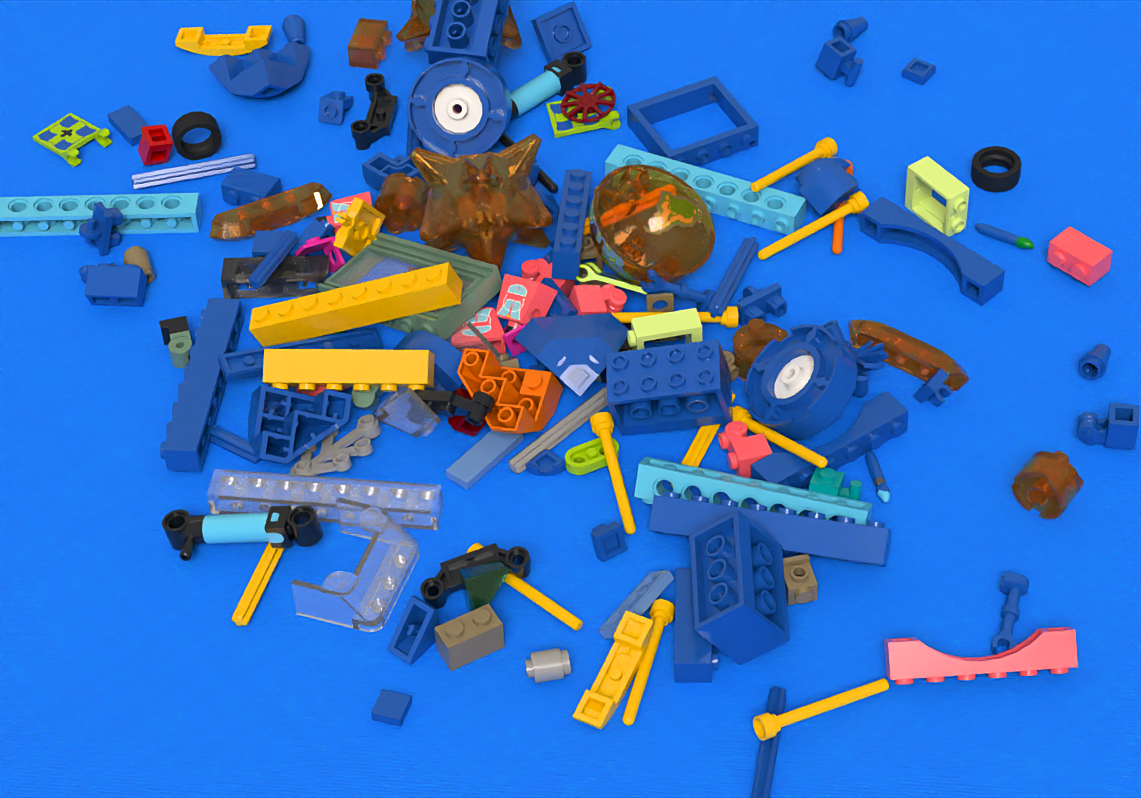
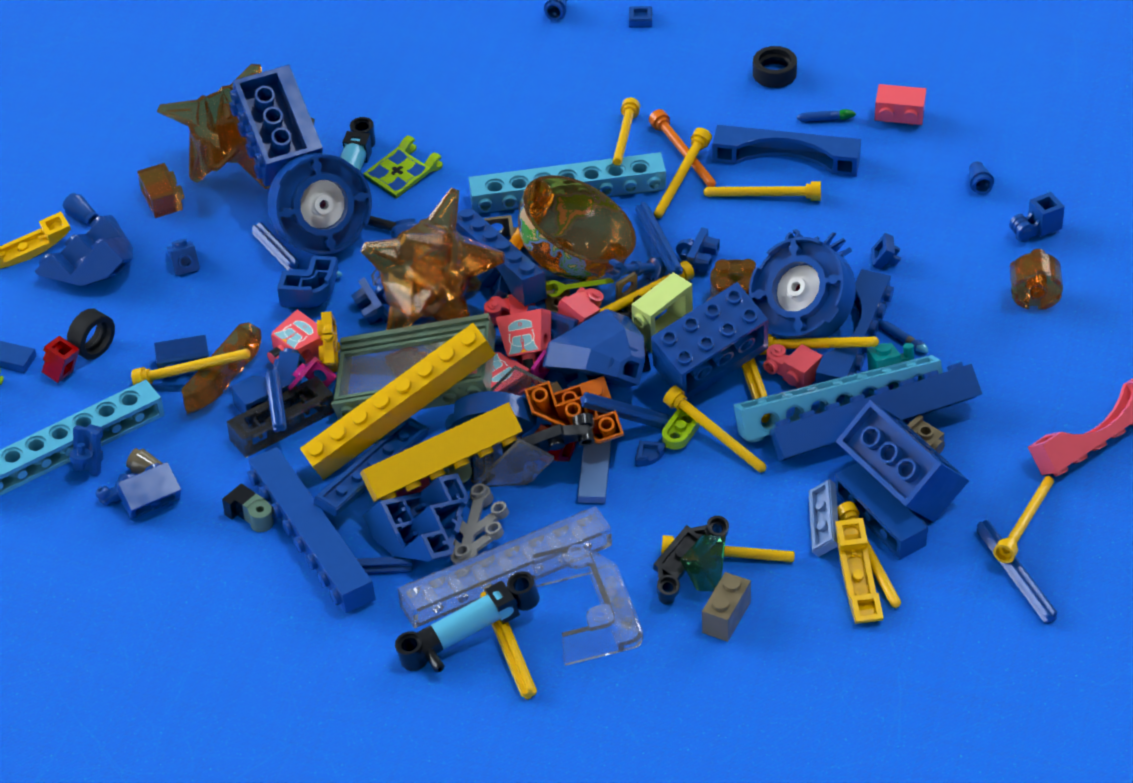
camera: 35 degrees left, 0 degrees up
(192, 171) = (109, 367): axle -> none
(208, 192) = (141, 374): none -> yellow piece
(379, 116) = (228, 240): black plate -> none
(391, 707) = (713, 690): blue tile -> none
(402, 202) = (339, 298): clear orange brick -> none
(415, 631) = (680, 624): blue slope -> none
(541, 411) = (624, 410): none -> blue axle
(548, 665) = (803, 595): light grey brick -> none
(560, 430) = (634, 429): light grey axle -> none
(561, 32) = (328, 108): blue tile -> none
(588, 102) = (404, 156): dark red wheel -> none
(608, 540) = (757, 482): blue tile -> none
(685, 99) = (458, 145): blue window -> none
(827, 183) = (666, 132): blue brick -> none
(837, 59) = (575, 33): blue brick -> none
(908, 352) = (859, 234): clear orange brick -> none
(921, 299) = (810, 191): none -> yellow piece
(929, 175) = (759, 90): yellowish green window -> none
(1015, 586) = (1075, 365): blue piece -> none

